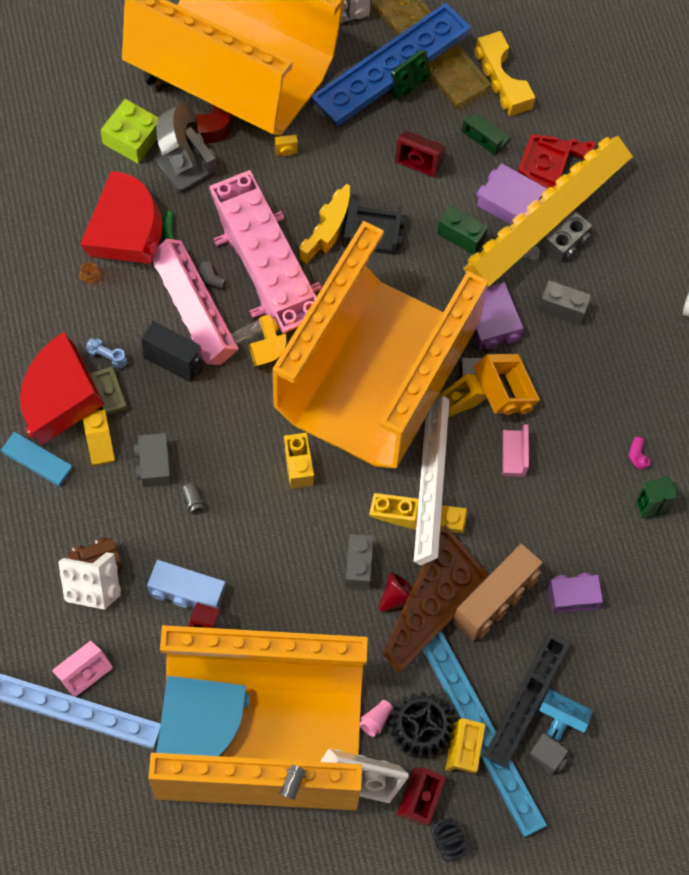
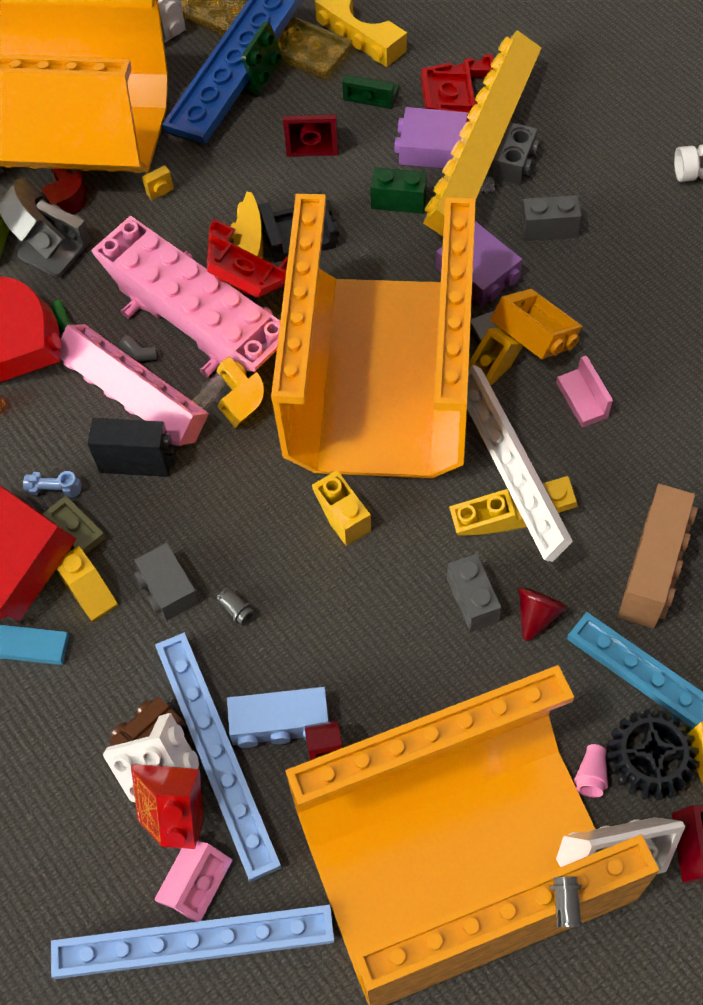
camera: 15 degrees left, 5 degrees down
(88, 613) = (169, 803): none -> red slope
(134, 595) = (218, 758): none -> light blue plate
(200, 716) = (376, 877): dark azure brick -> none
(309, 244) = (240, 267): none -> red wing
(434, 599) = (589, 598): reddish brown wing -> none

